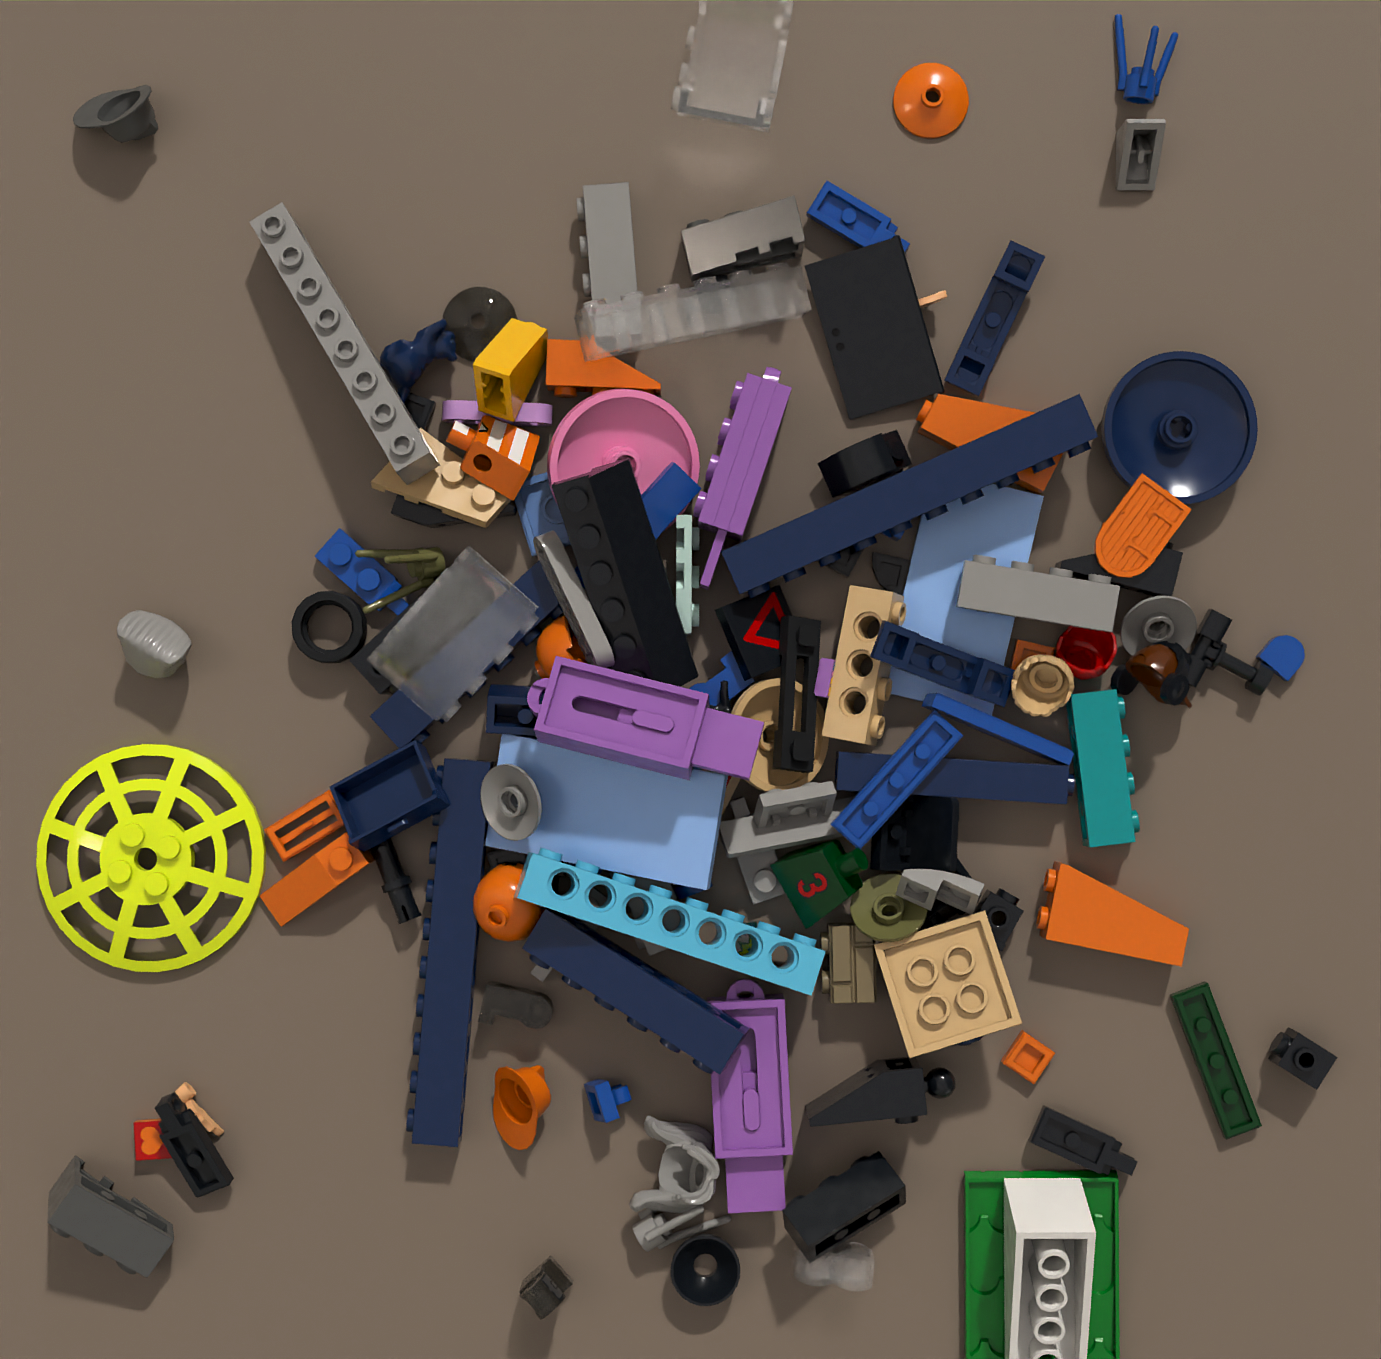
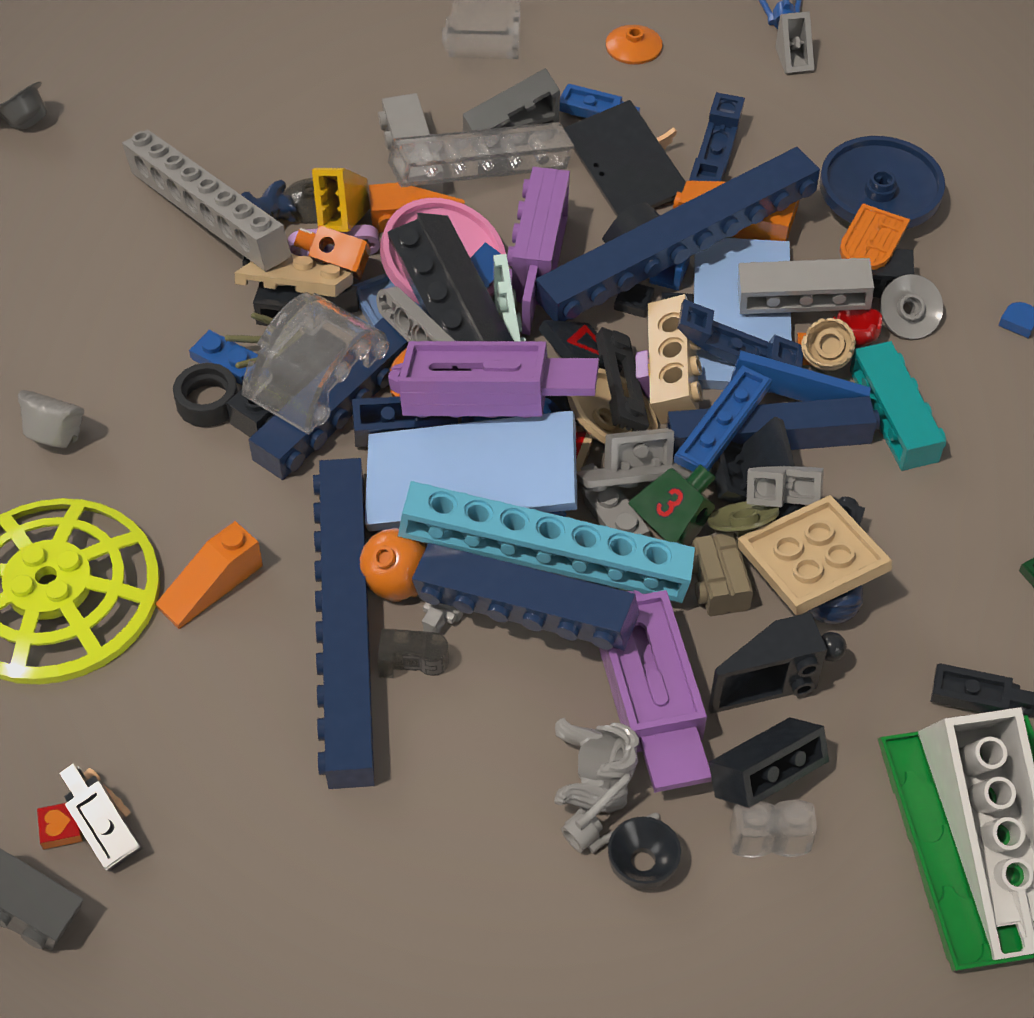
camera: 10 degrees left, 35 degrees down
(279, 842) = (193, 536): orange tile -> none
(389, 796) = (273, 492): dark blue container -> none
(395, 881) = (284, 571): black pin -> none
(511, 802) = (384, 469): light grey dish -> none
(518, 1103) = (427, 729): orange piece -> none
(545, 1287) = (480, 893): clear smoke leg -> none
(605, 1098) = (511, 717): blue tile -> none
(1027, 1057) = (907, 633): orange tile -> none
(1103, 919) = (943, 510): orange slope -> none
(1160, 669) = (924, 332): cap -> none
(1210, 652) = (959, 320): black bar -> none

